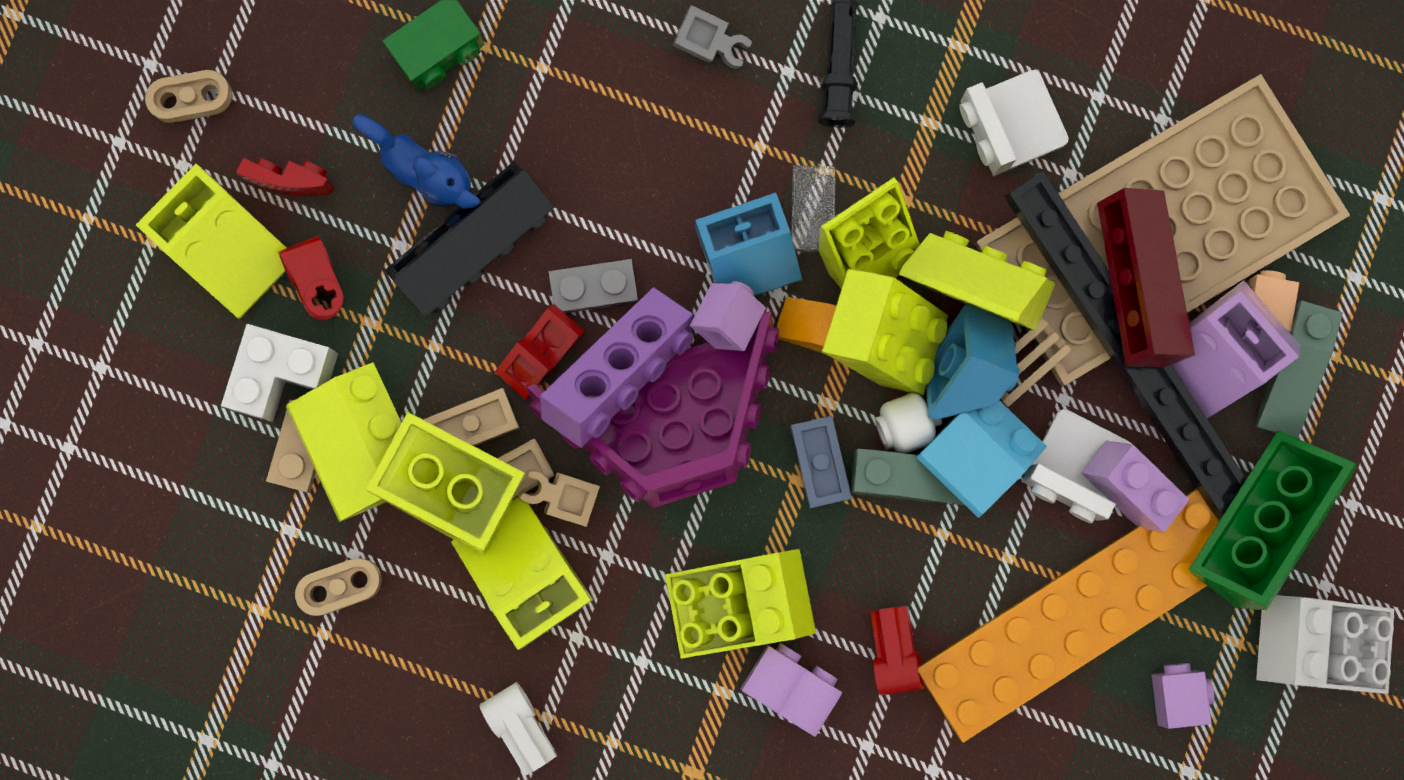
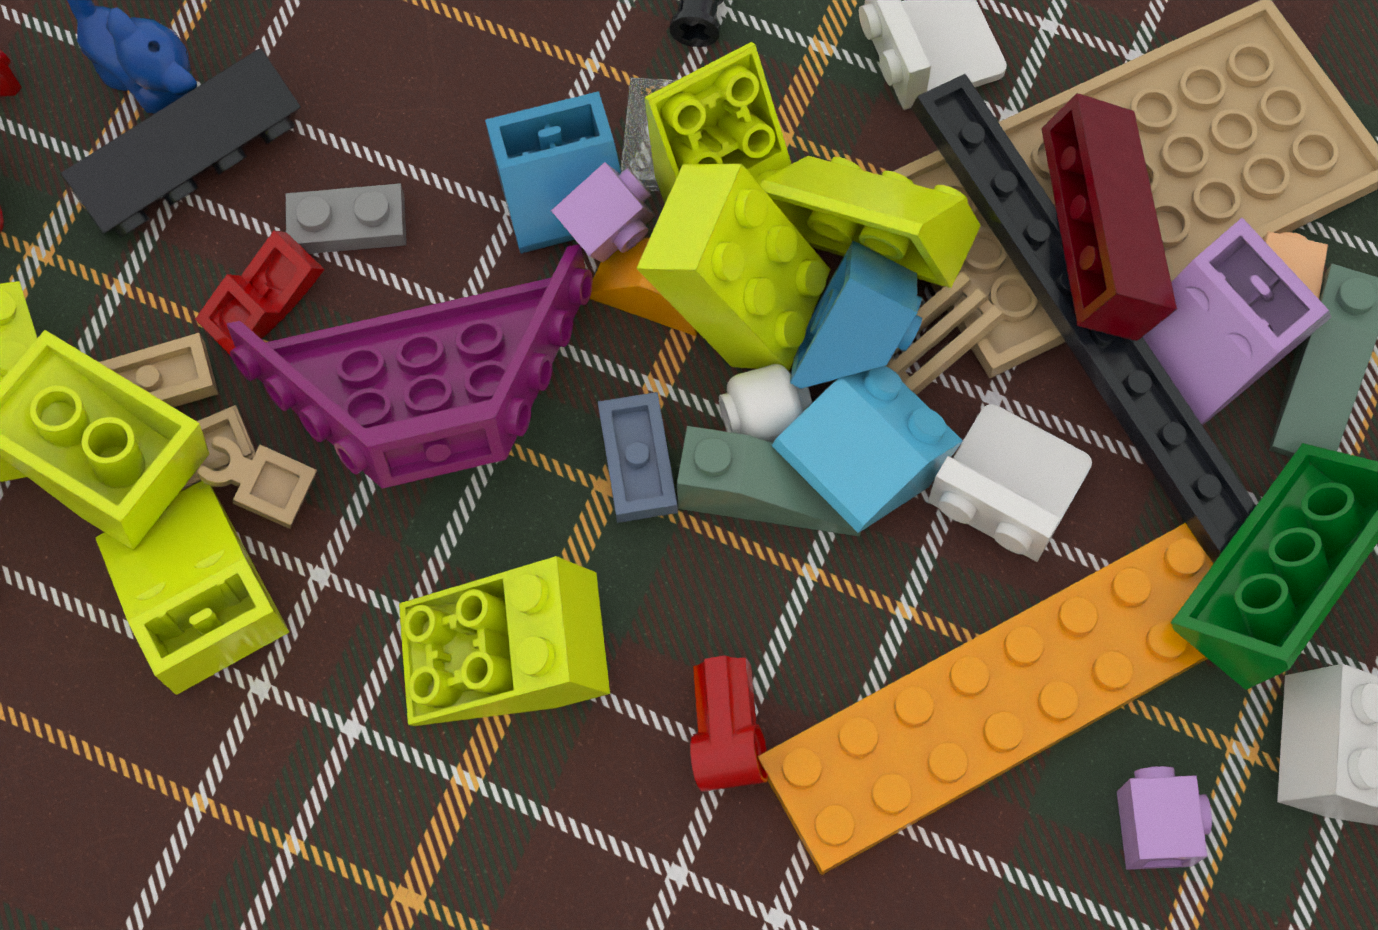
camera: 10 degrees right, 15 degrees down
(513, 719) = (143, 794): white piece -> none
(622, 346) = (351, 299): medium lavender brick -> none
(728, 316) = (519, 246): lavender brick -> none
(789, 288) = (606, 212): none -> lavender brick
(791, 689) = (567, 773): lavender brick -> none
(1135, 486) = (1099, 505): lavender brick -> none

